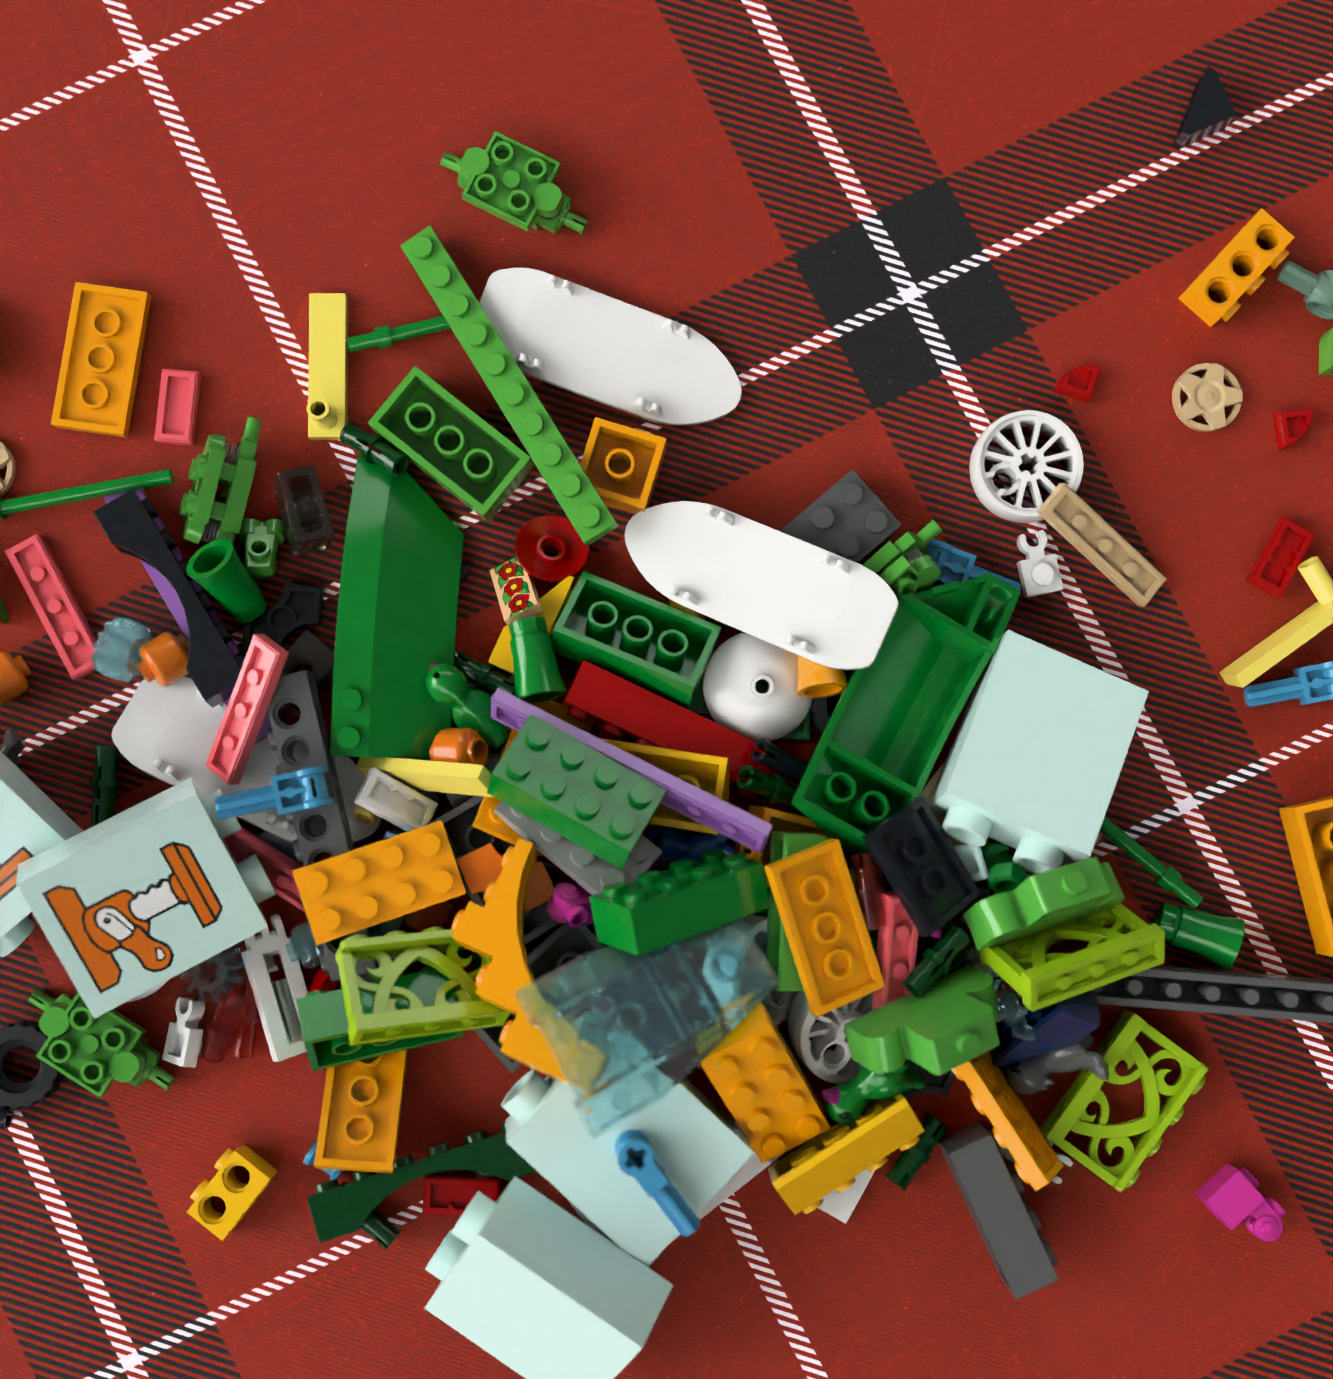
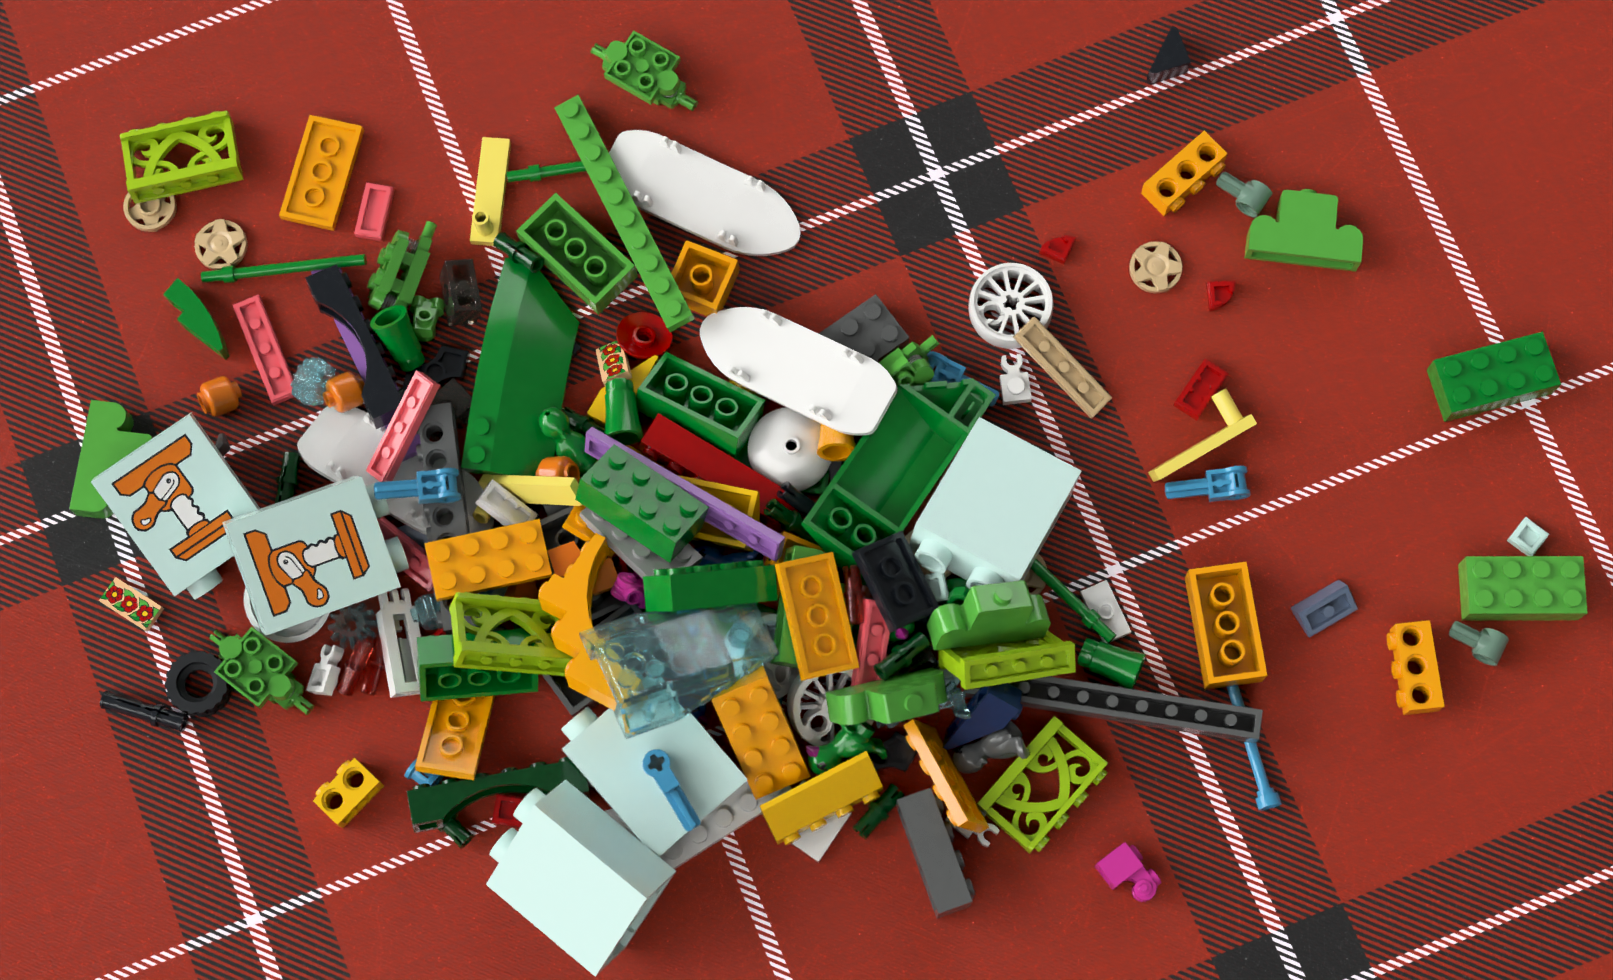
camera: 10 degrees right, 10 degrees down
(1176, 849) = (1105, 604): none -> white plate

